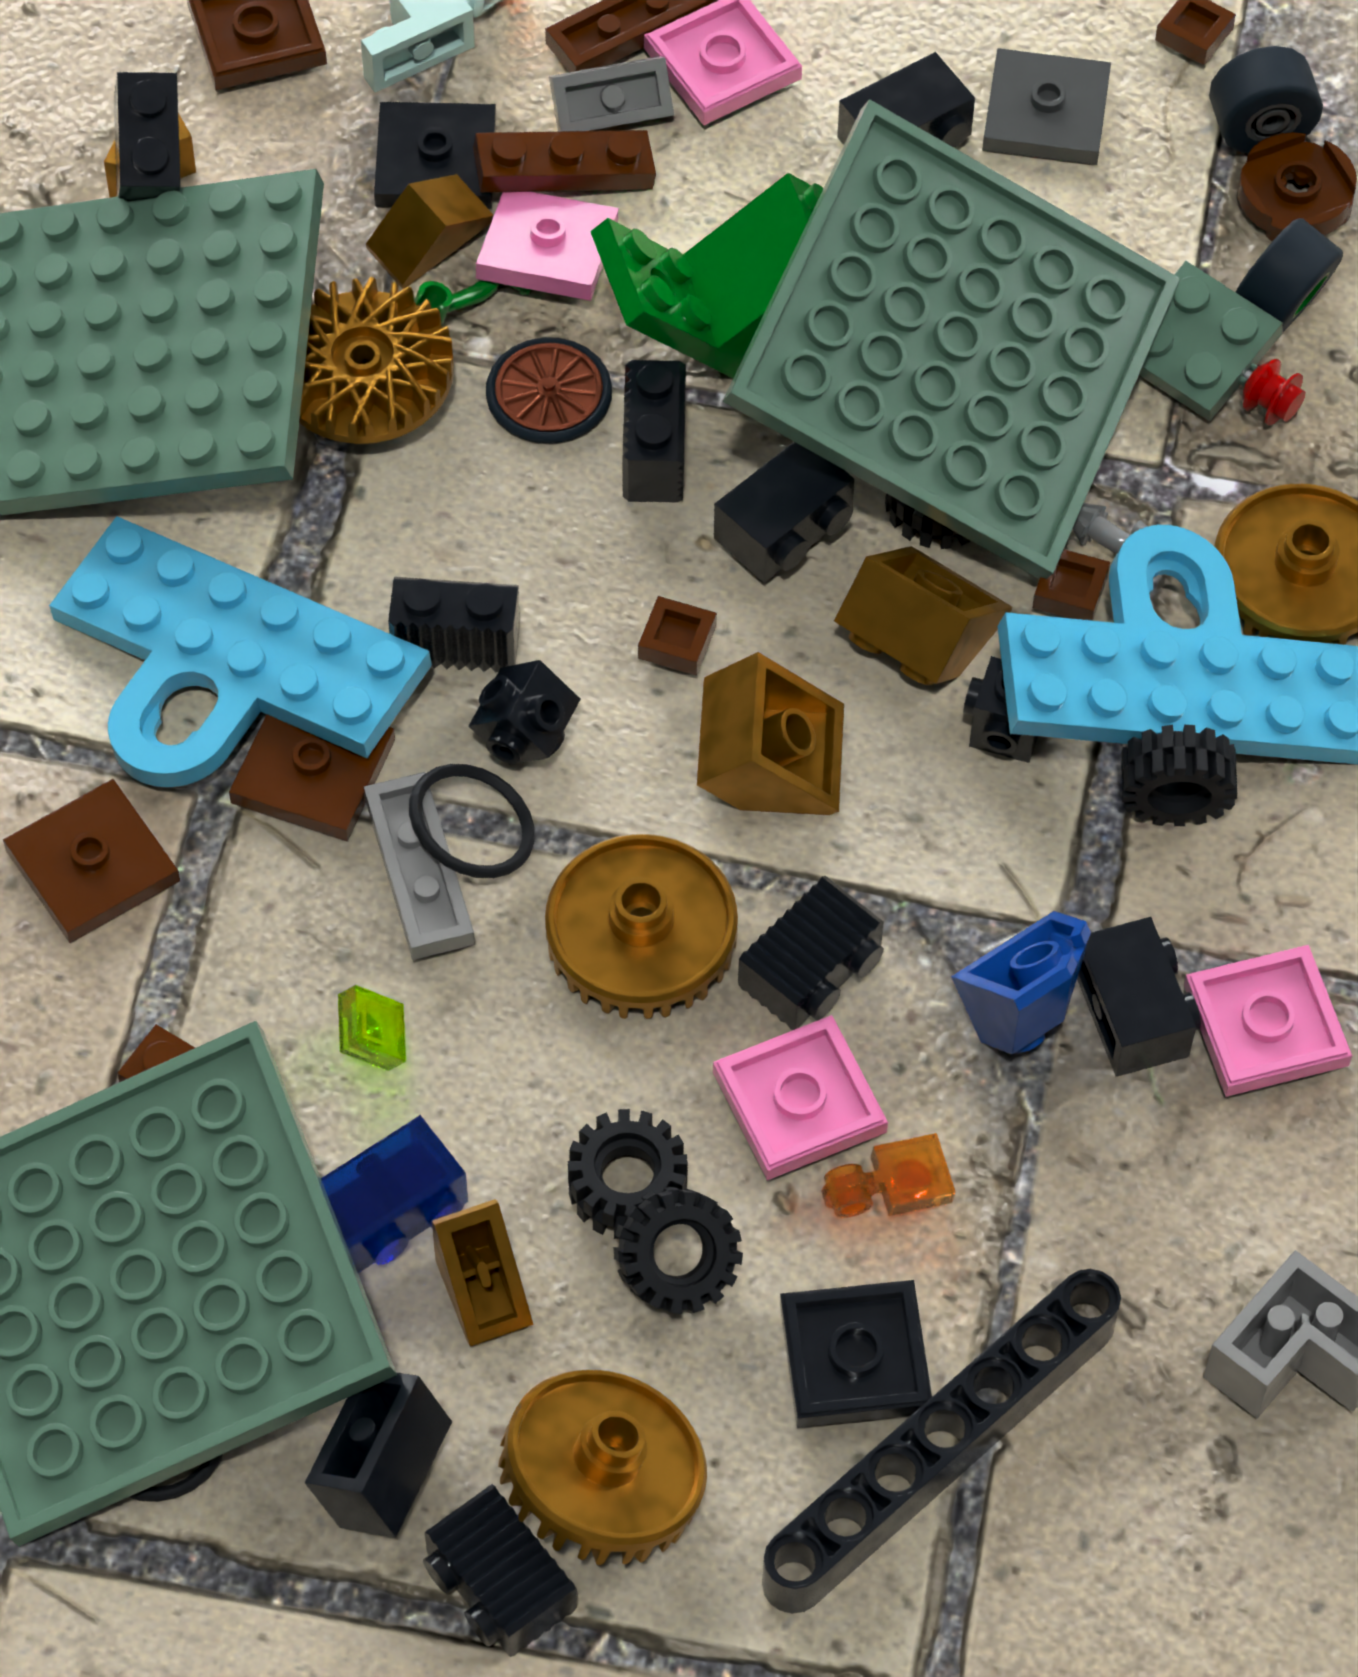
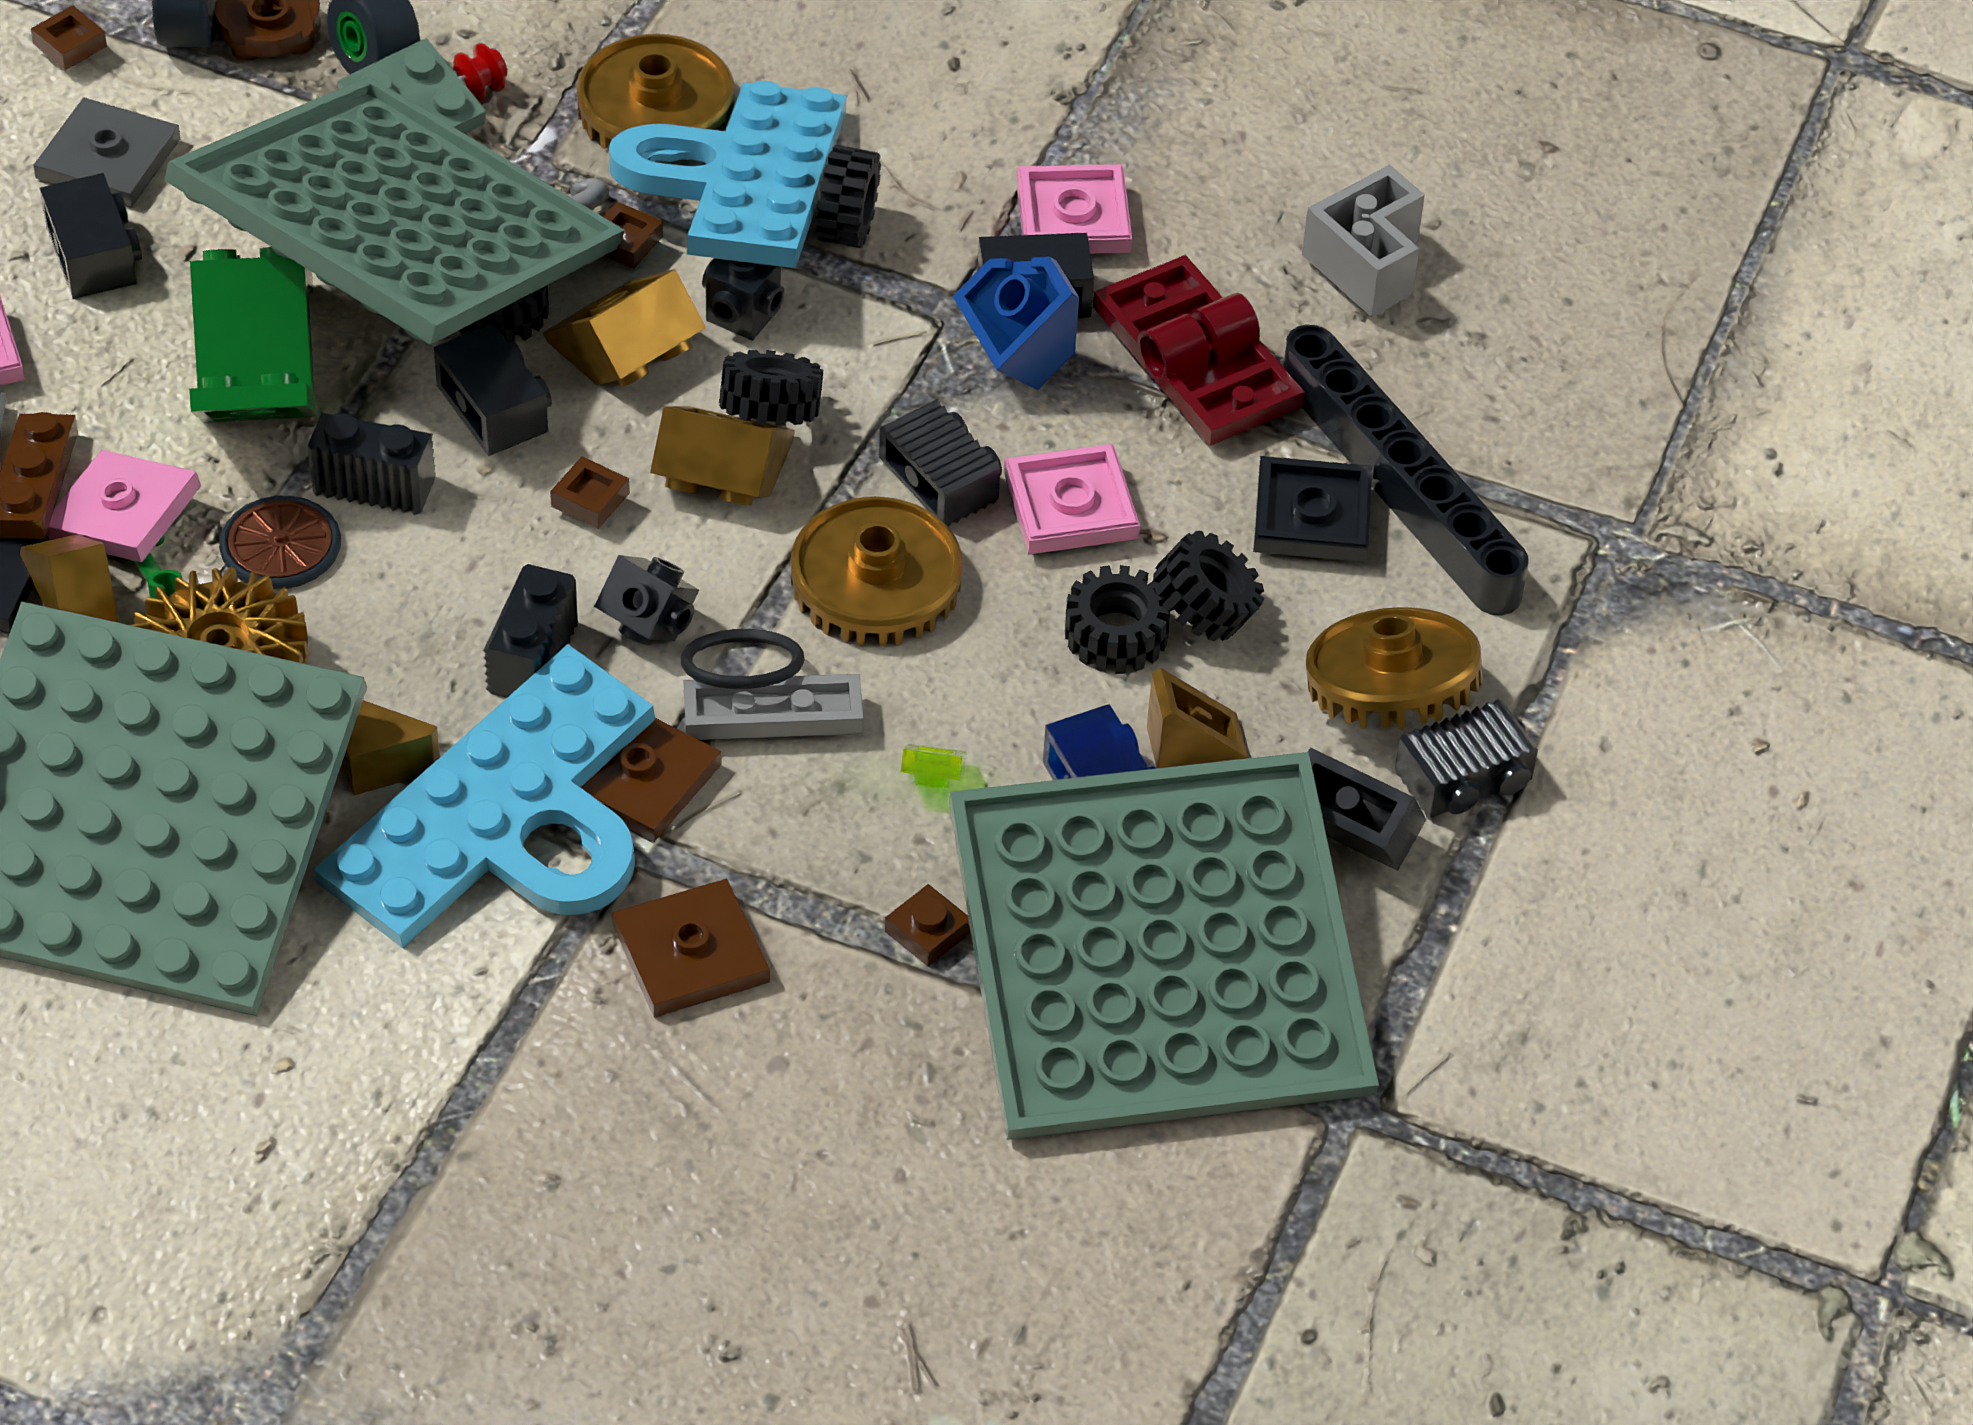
camera: 80 degrees left, 10 degrees down
(279, 522) = (387, 748): none -> pearl gold slope
(839, 777) = (771, 387): none -> black tyre
(906, 1172) = (1164, 449): clear orange plate -> none
(1075, 1187) = (1199, 348): none -> dark red plate

